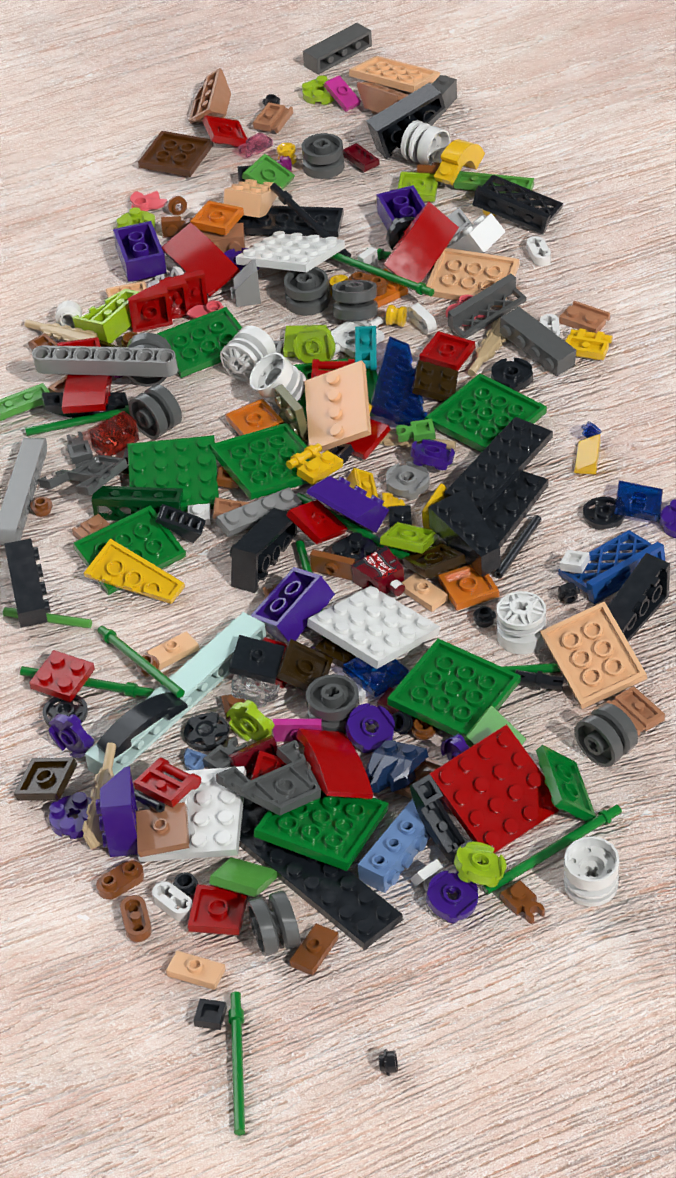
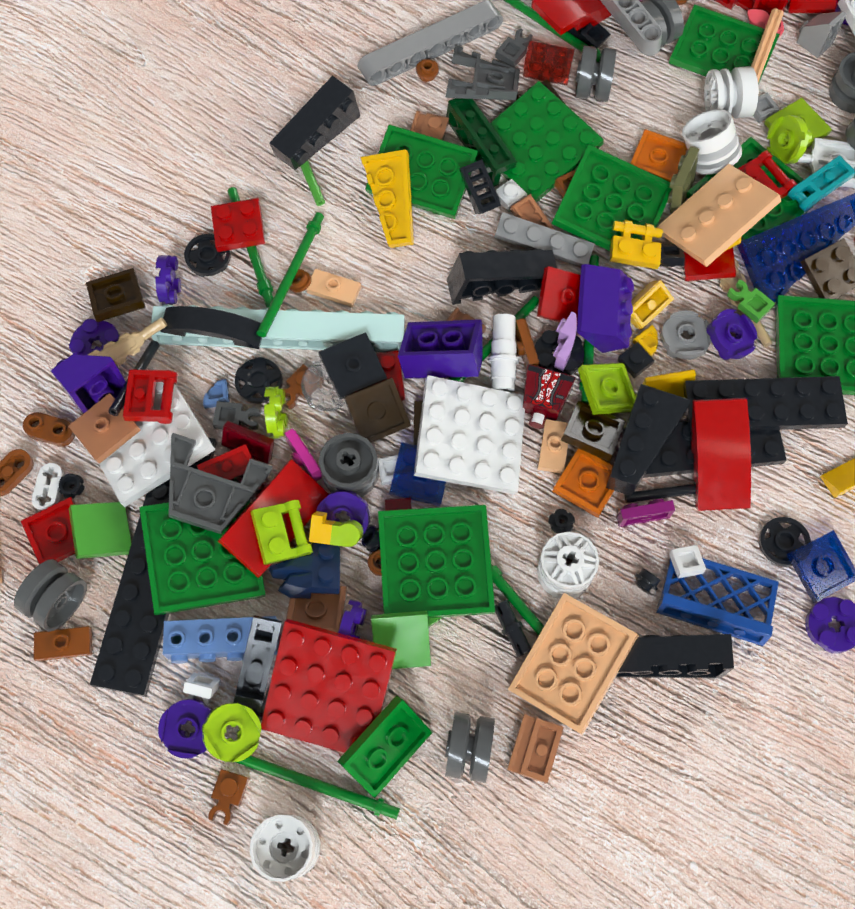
camera: 50 degrees right, 25 degrees up
(224, 312) = (767, 41): none -> light nougat axle
(337, 581) = (503, 353): none -> white piece
(353, 757) = (272, 532): none -> lime plate
(354, 534) = (566, 338): none -> lavender slope
(375, 736) = (334, 532): none -> leg
(516, 501) = (721, 454): none -> red slope
(522, 563) = (653, 511): none -> magenta plate

